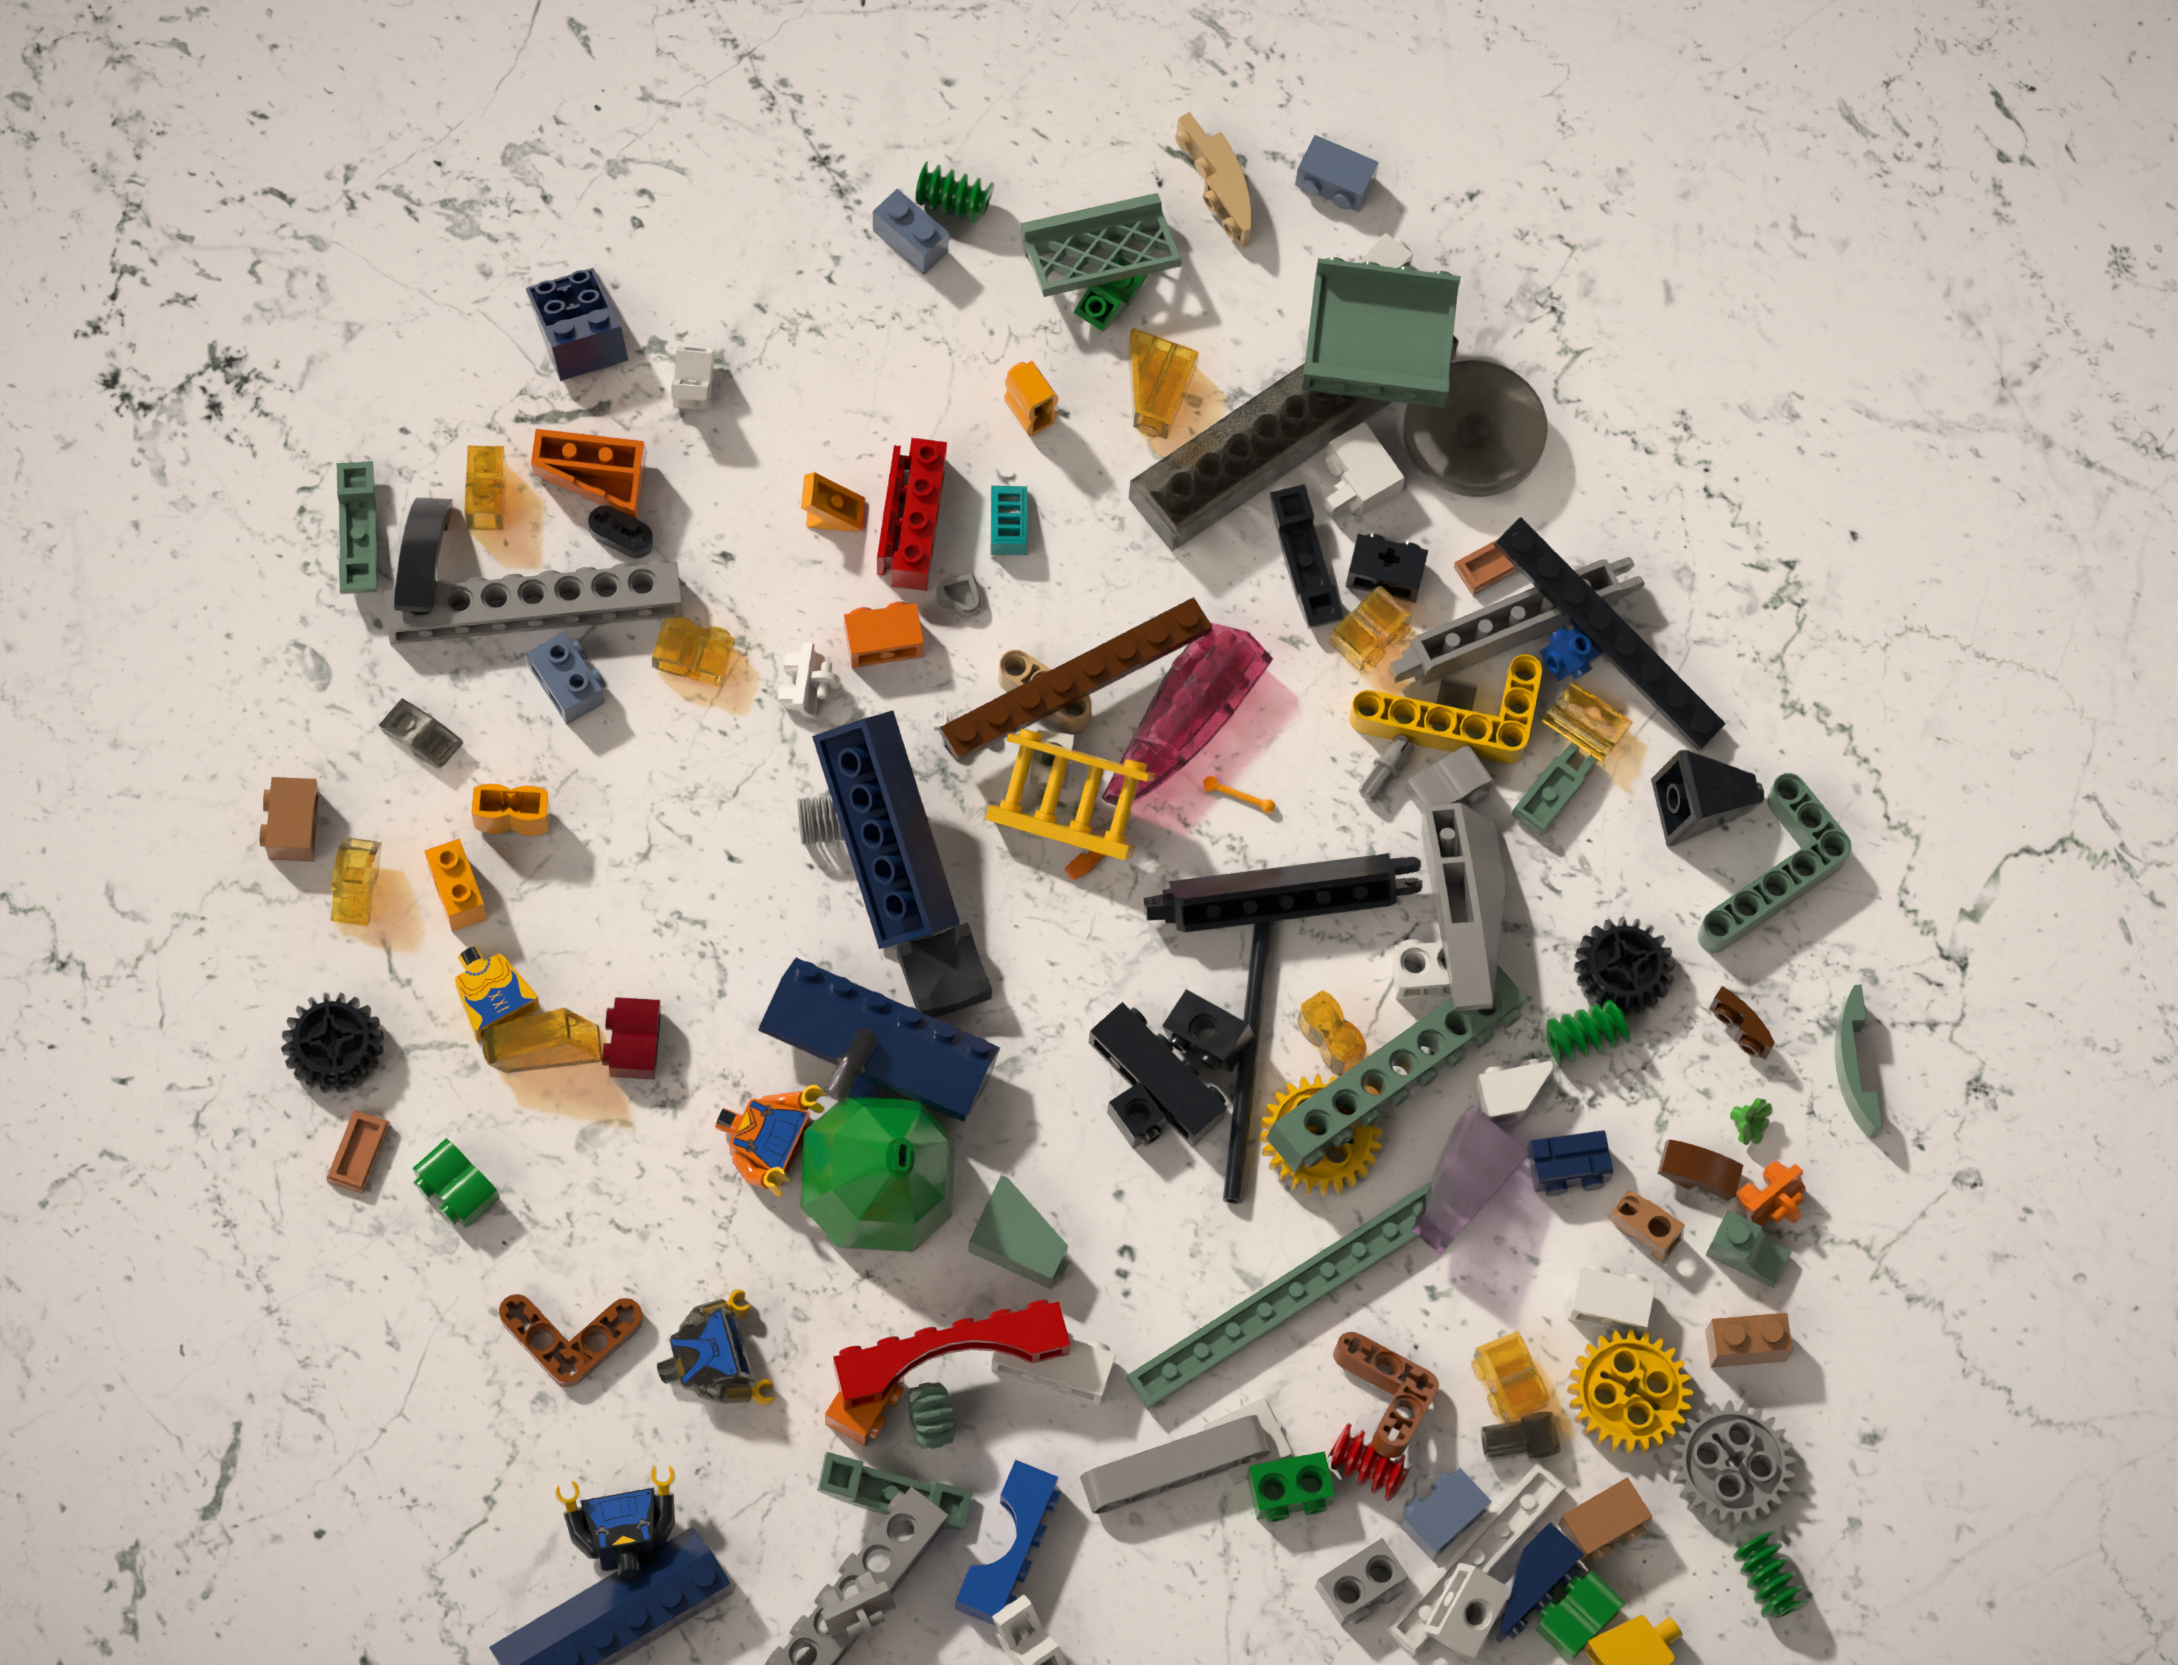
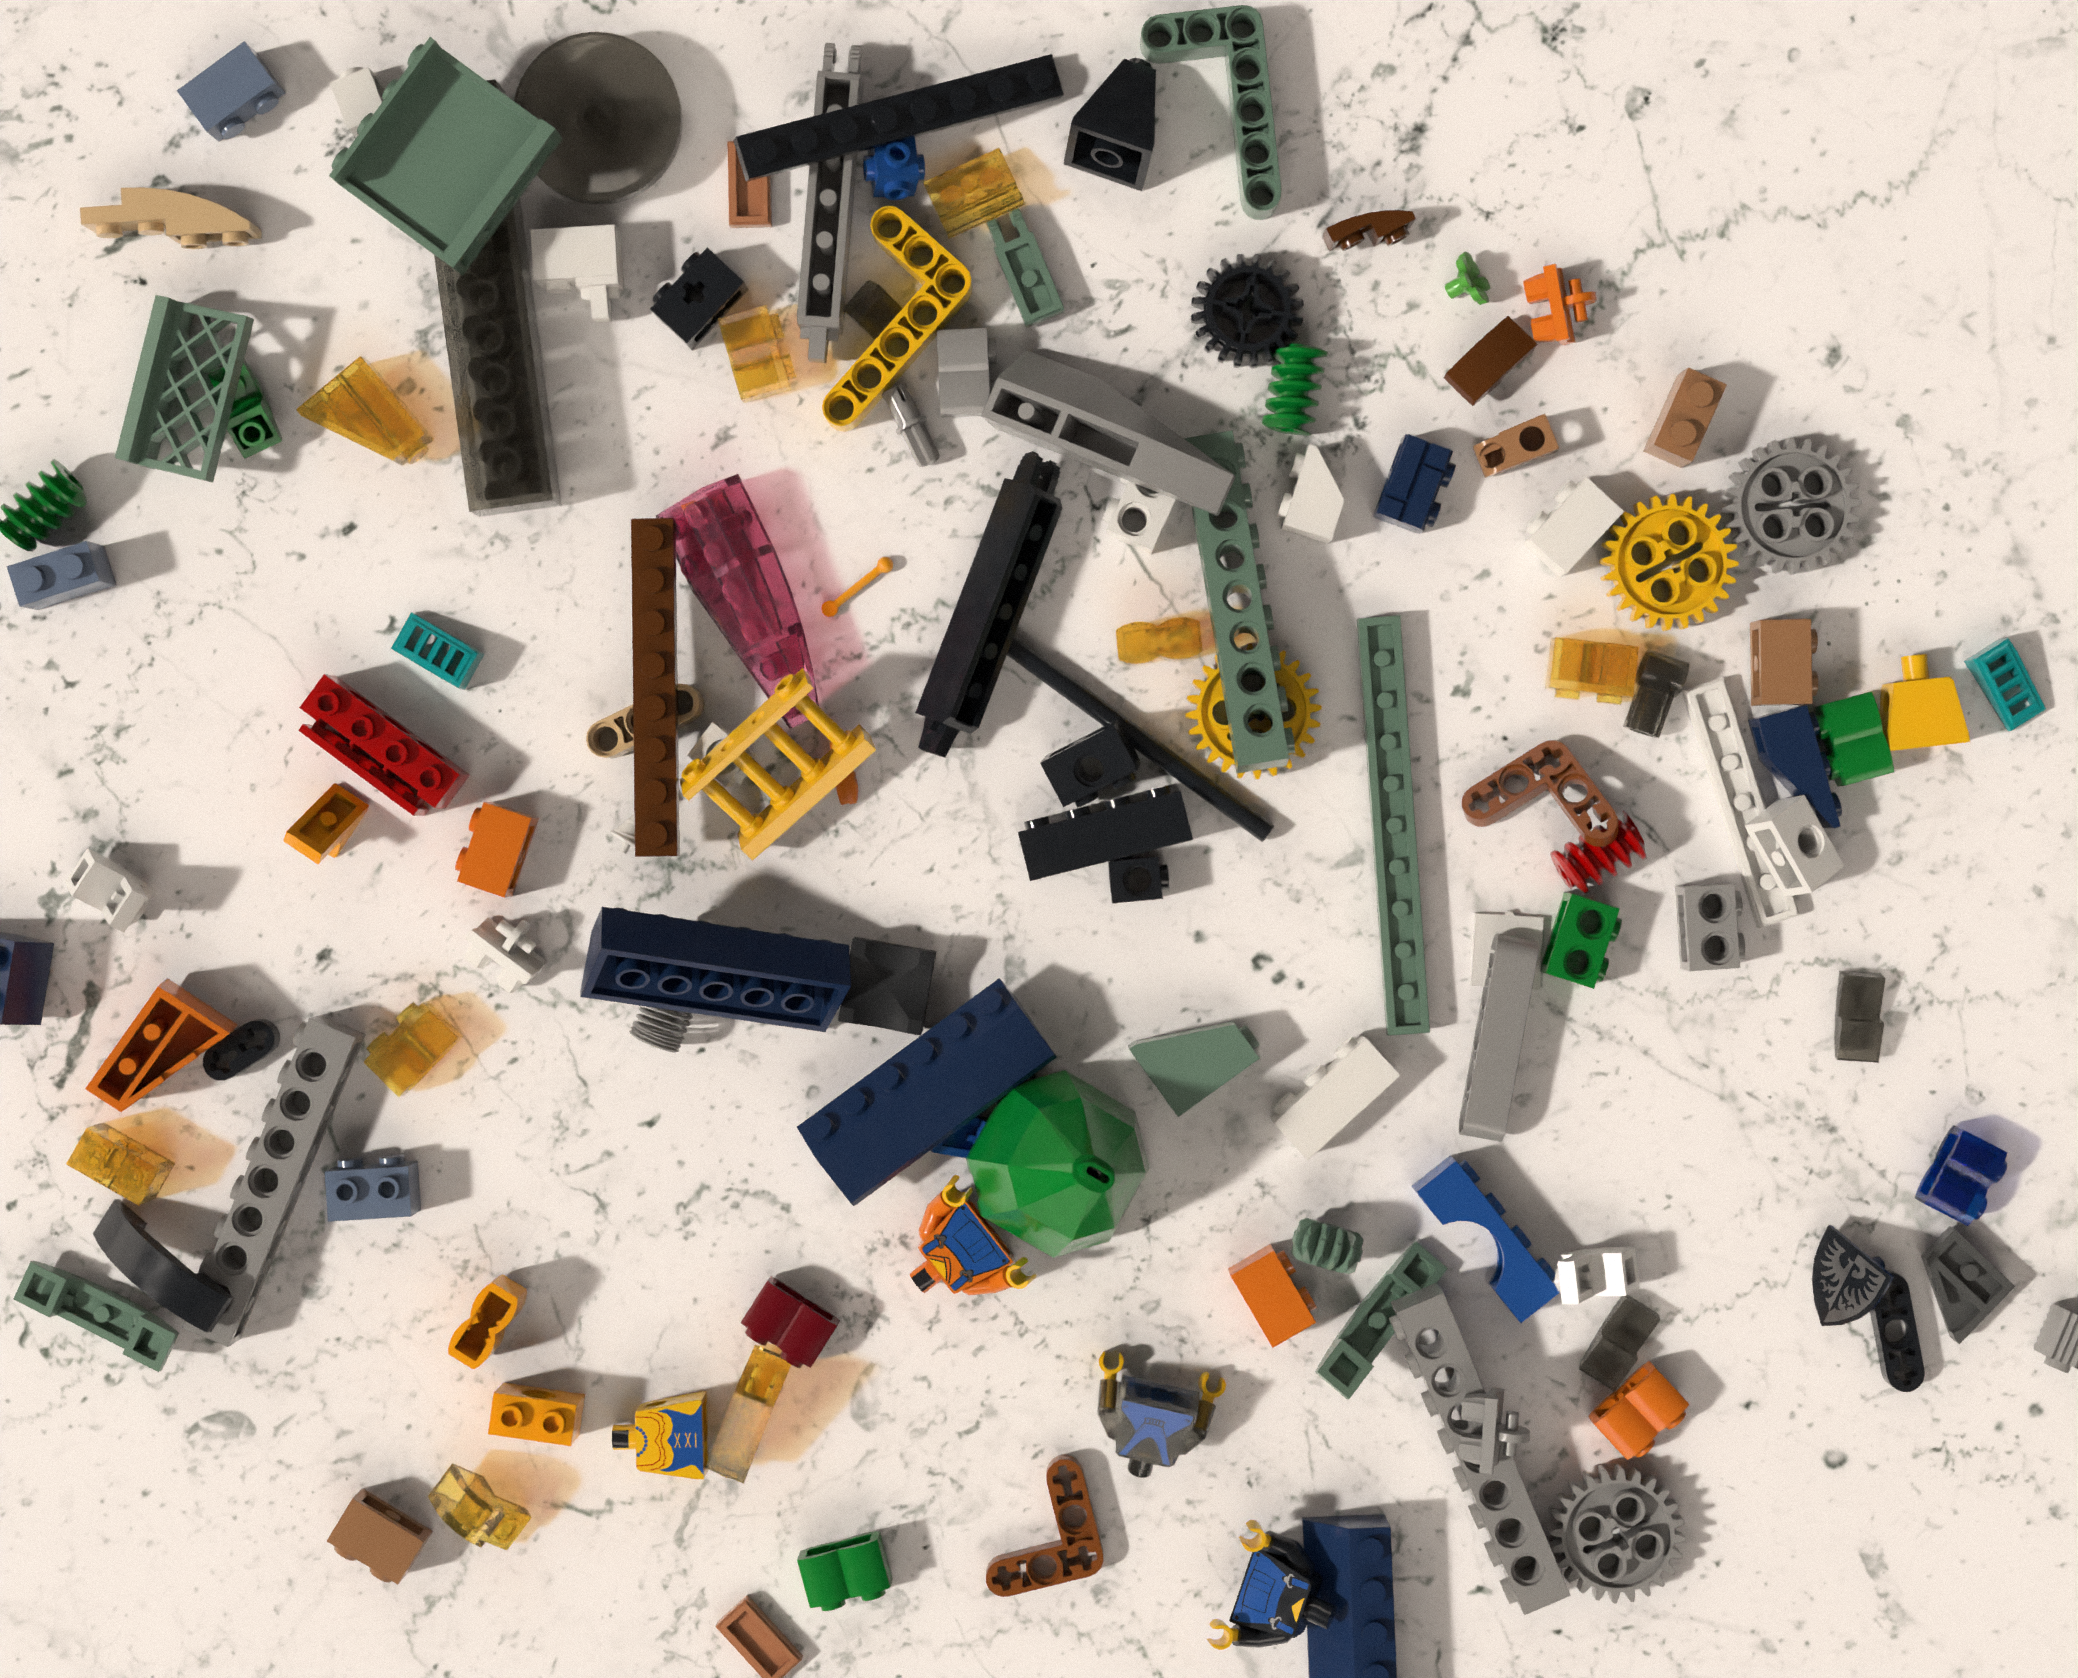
camera: 55 degrees left, 20 degrees up
(346, 1042) = (652, 1617): black gear -> none
(421, 733) = (355, 1362): clear smoke slope -> none
(851, 1064) = (945, 1141): clear smoke axle -> none
(961, 594) = (492, 744): light grey tile -> none
(1028, 1334) = (1309, 1117): red arch -> none
(1030, 397) = (318, 559): light orange brick -> none
(1304, 557) = (643, 375): black slope -> none
(1445, 1512) = (1686, 809): sand blue brick -> none
(1468, 1175) = (1381, 598): slope -> none
(1748, 1249) = (1594, 363): sand green arch -> none
(1769, 1577) = (1921, 535): green piece -> none
(1862, 1105) = (1519, 162): sand green slope -> none

